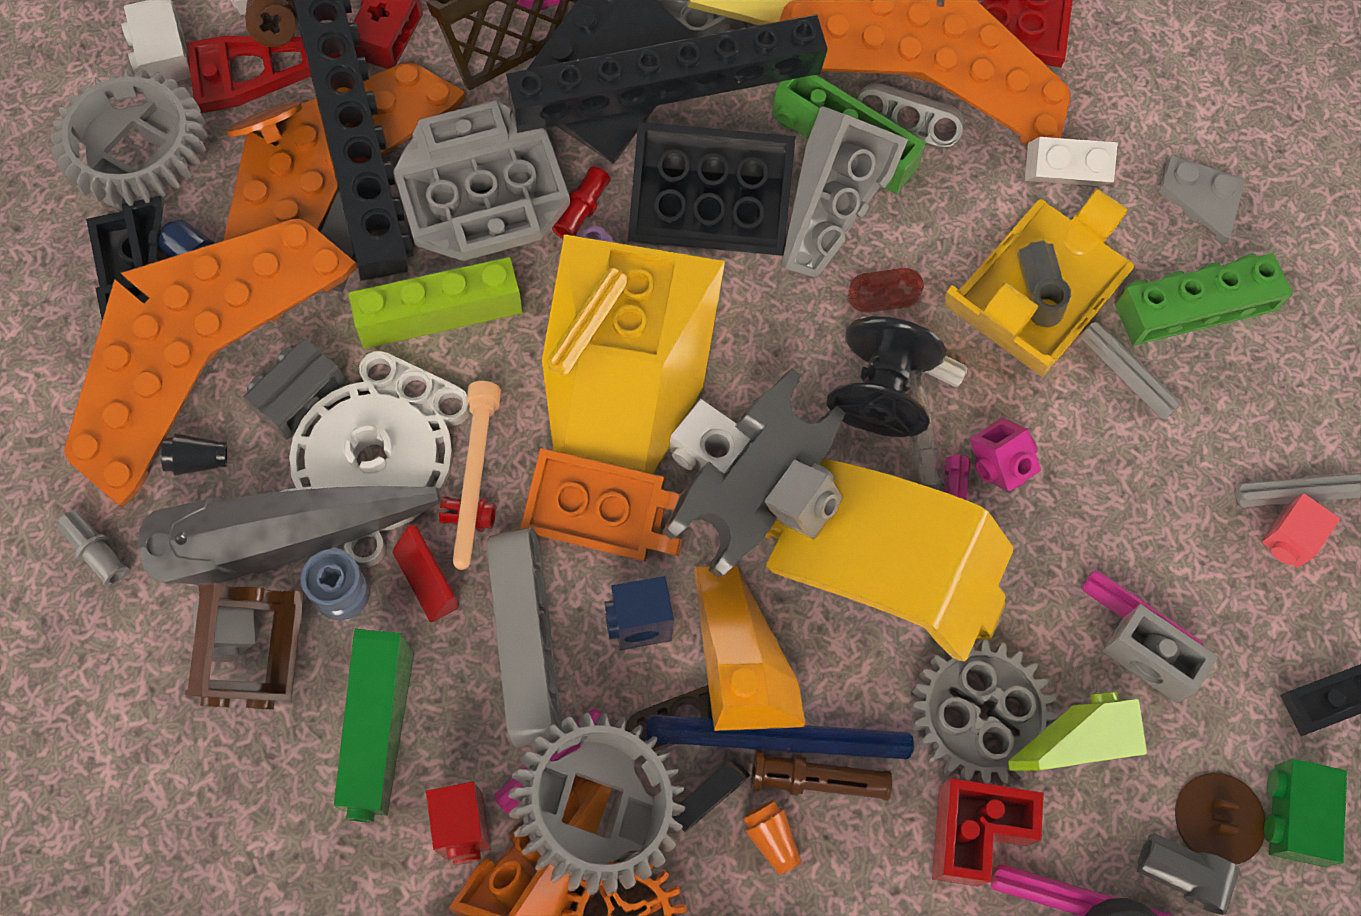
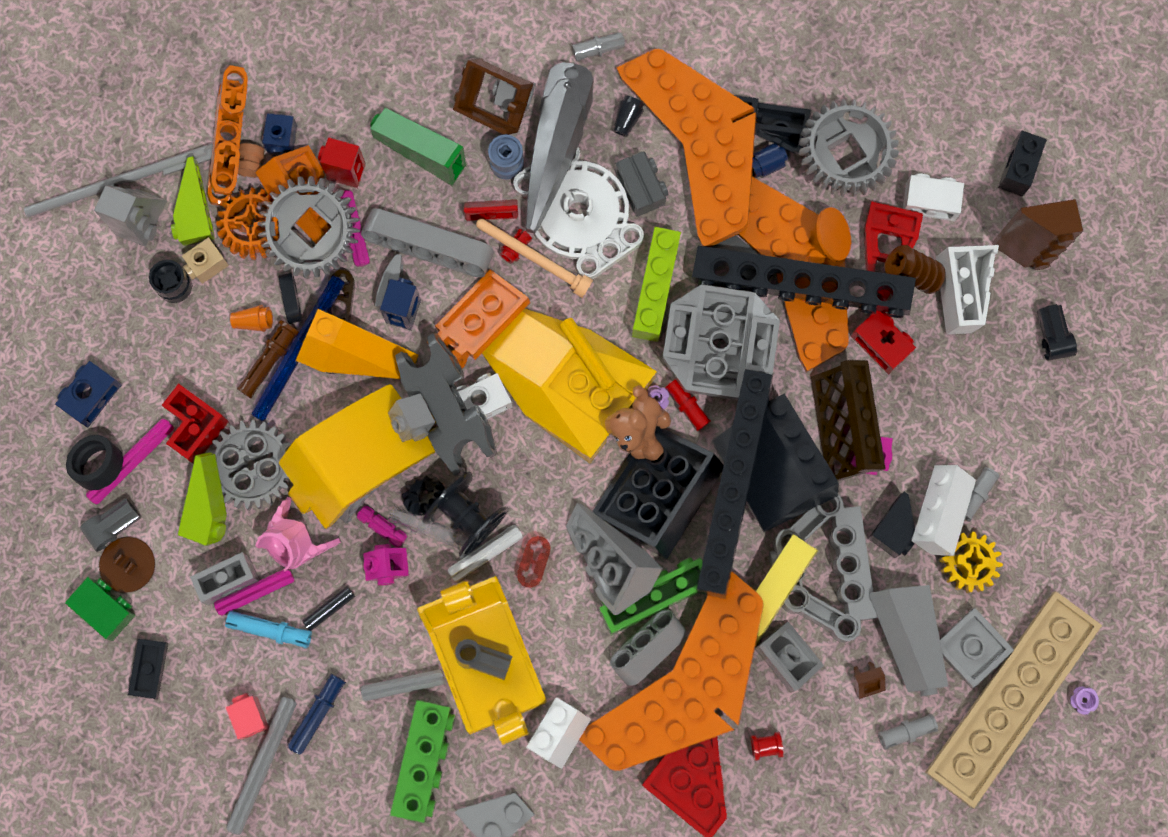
camera: 120 degrees right, 10 degrees up
(600, 658) = (393, 271): none -> light grey slope
(654, 221) = (636, 426): none -> nougat animal
(890, 438) = (411, 497): none -> black gear
(1055, 591) = (289, 540): none -> bright pink helmet
(1099, 508) = (328, 608): none -> black piece
(1175, 563) = (277, 631): none -> medium azure pin
(1217, 451) = (316, 714): none -> dark blue axle

